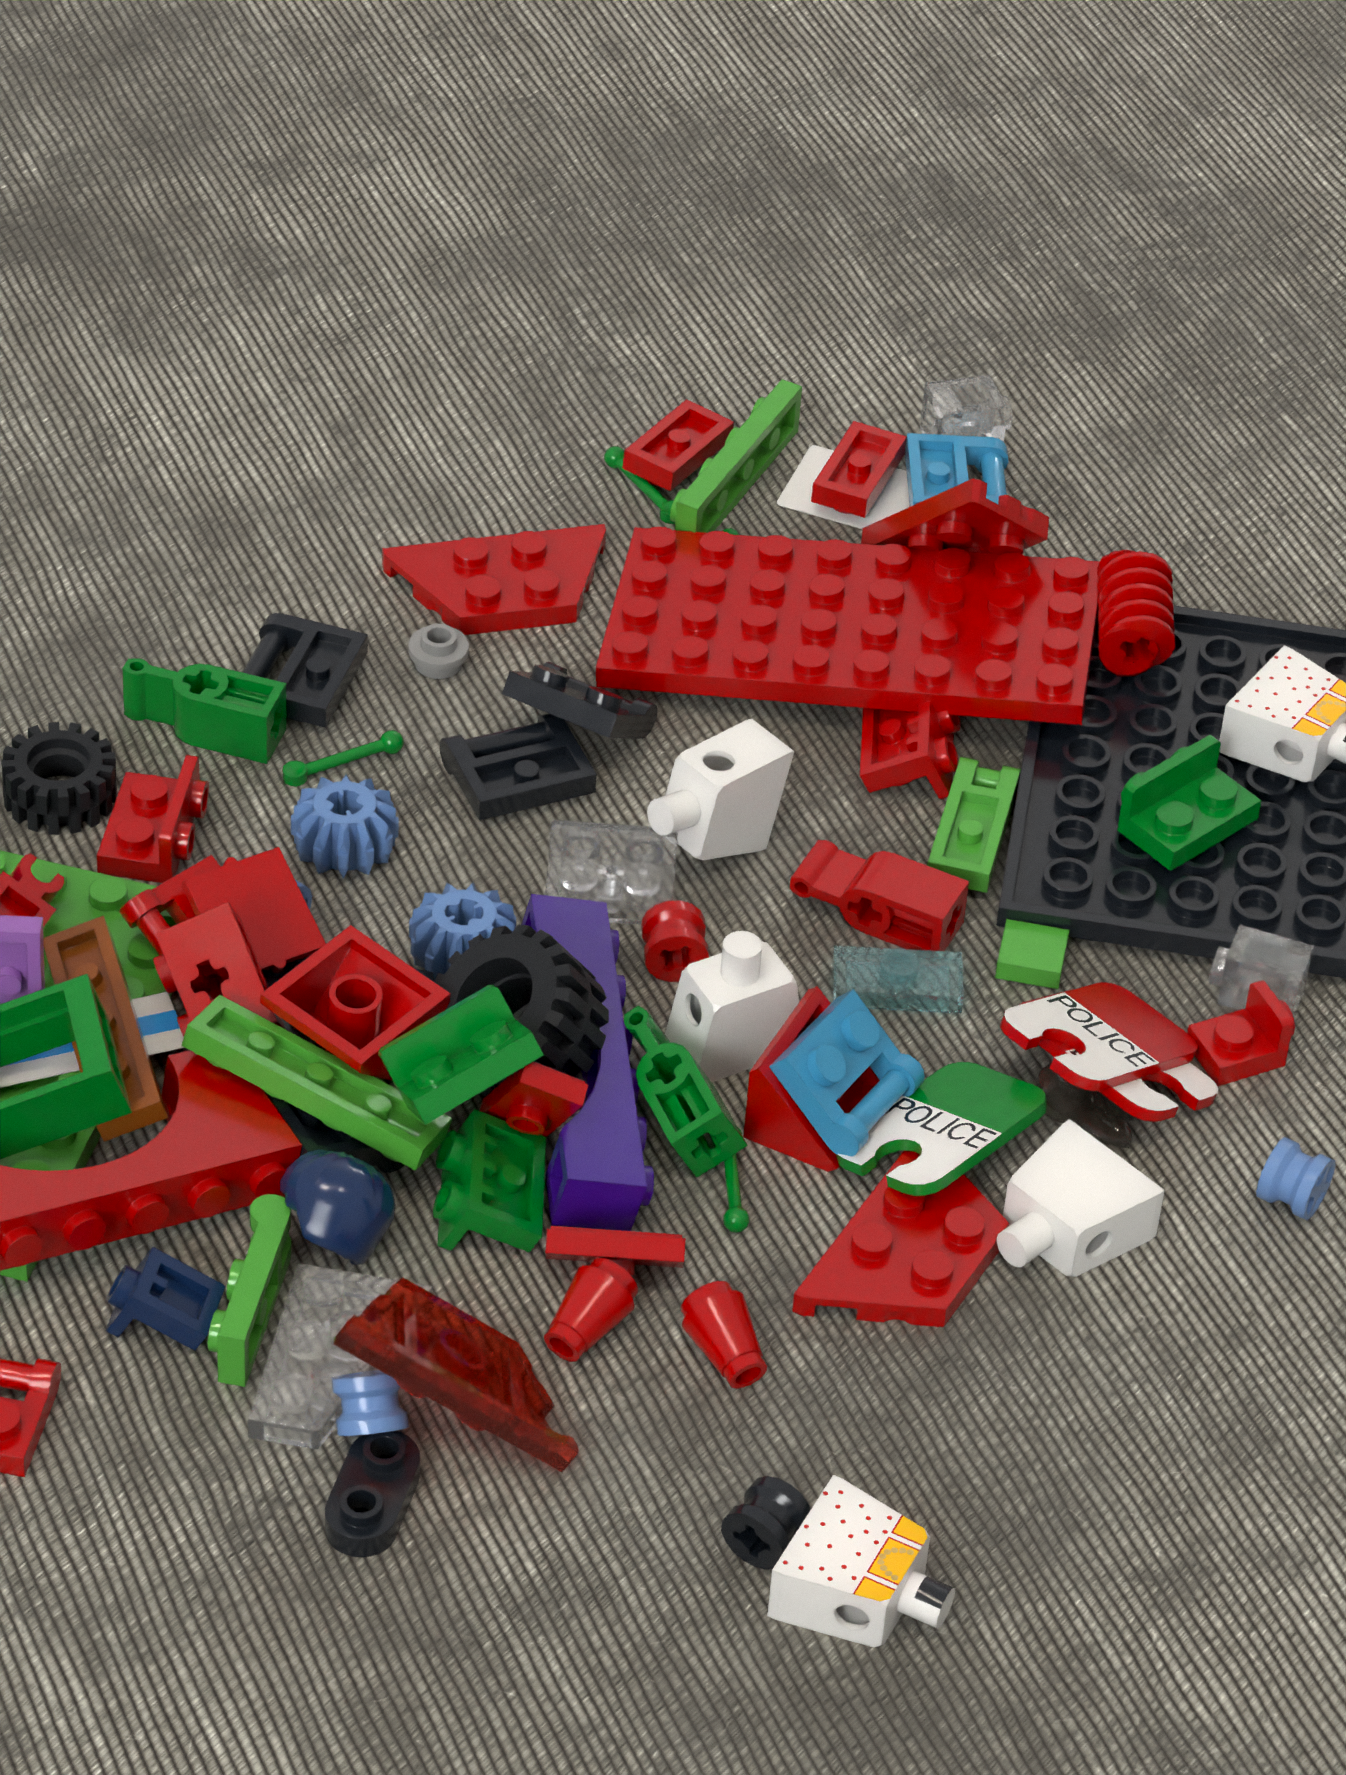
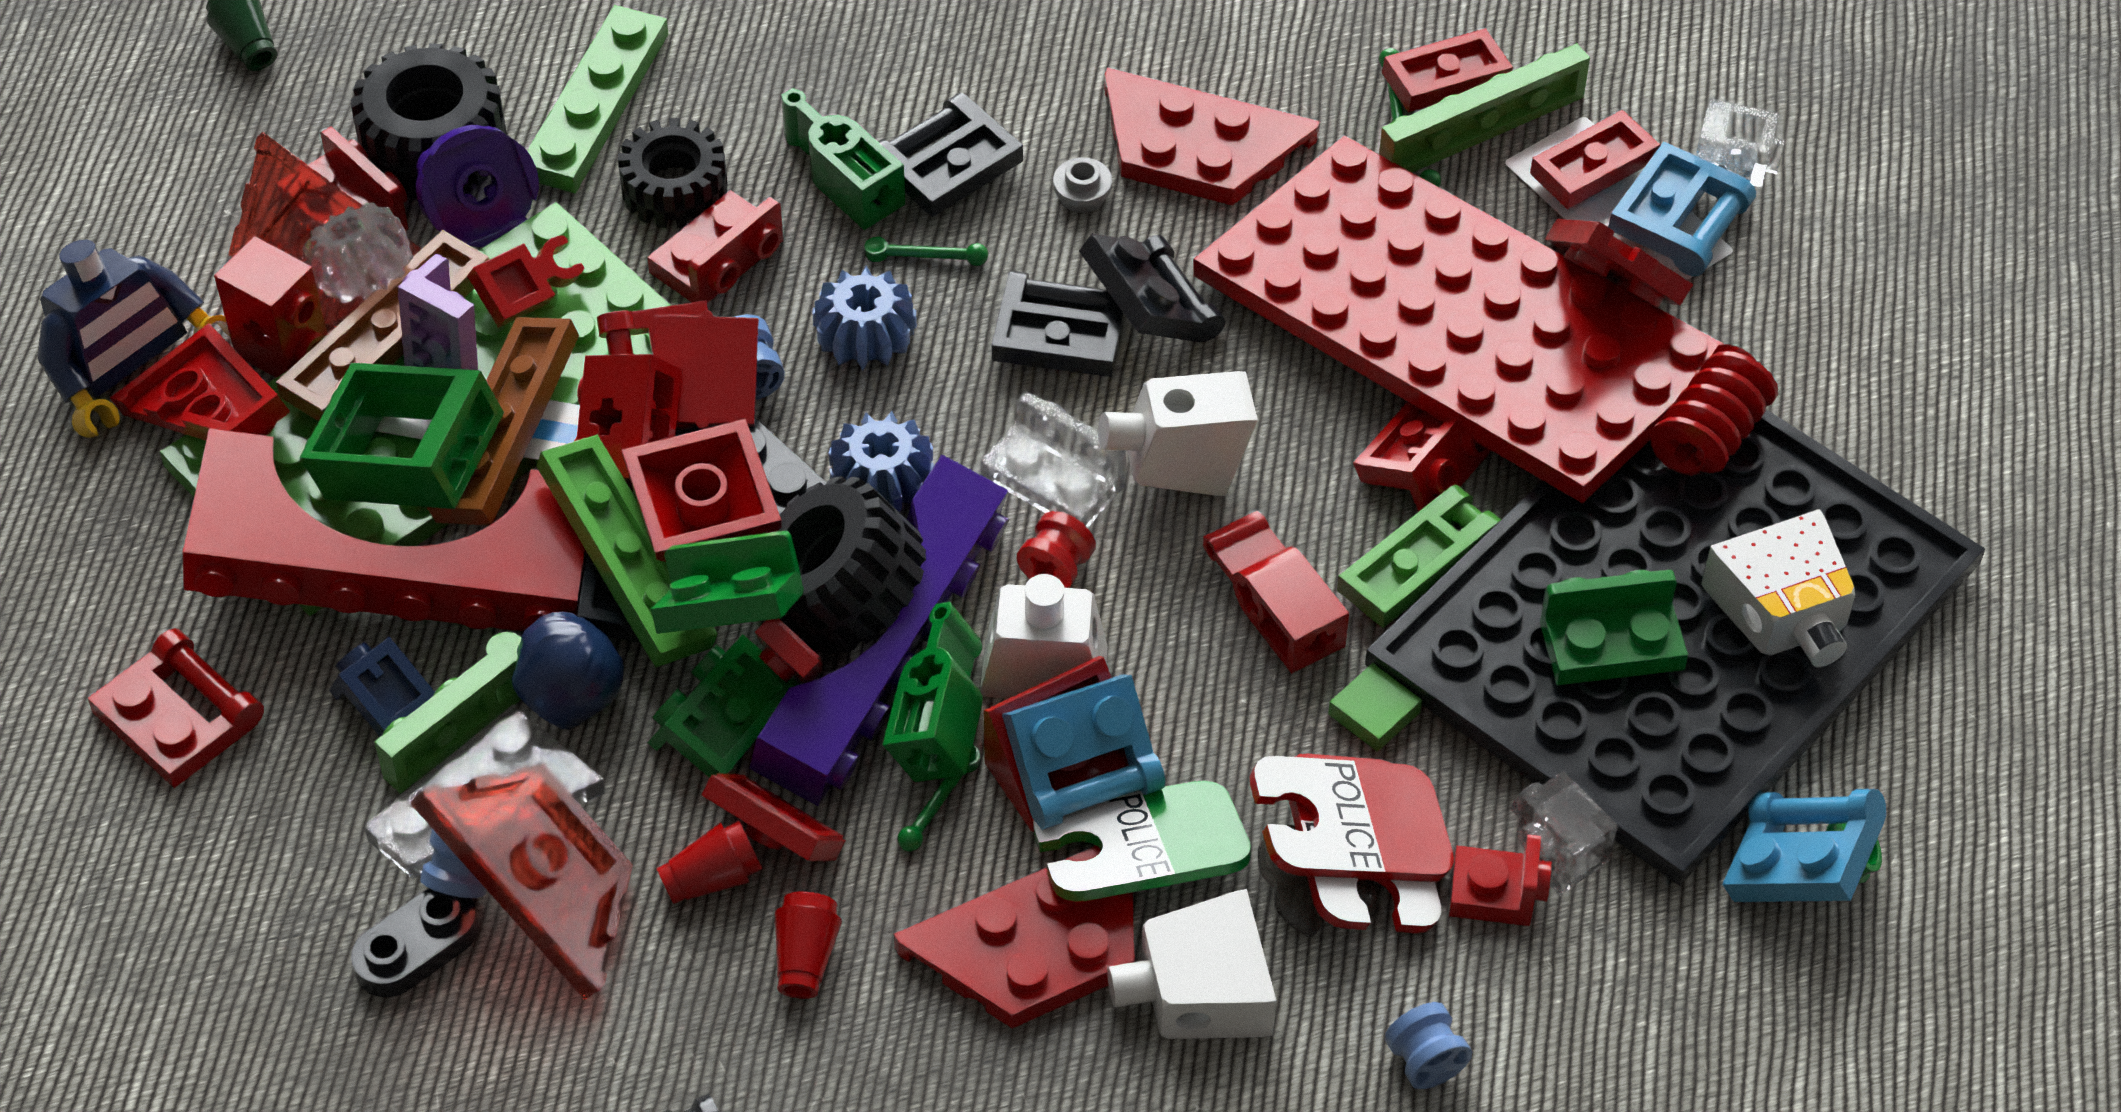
camera: 35 degrees right, 10 degrees up
(900, 978) = (1233, 676): clear light blue plate -> none

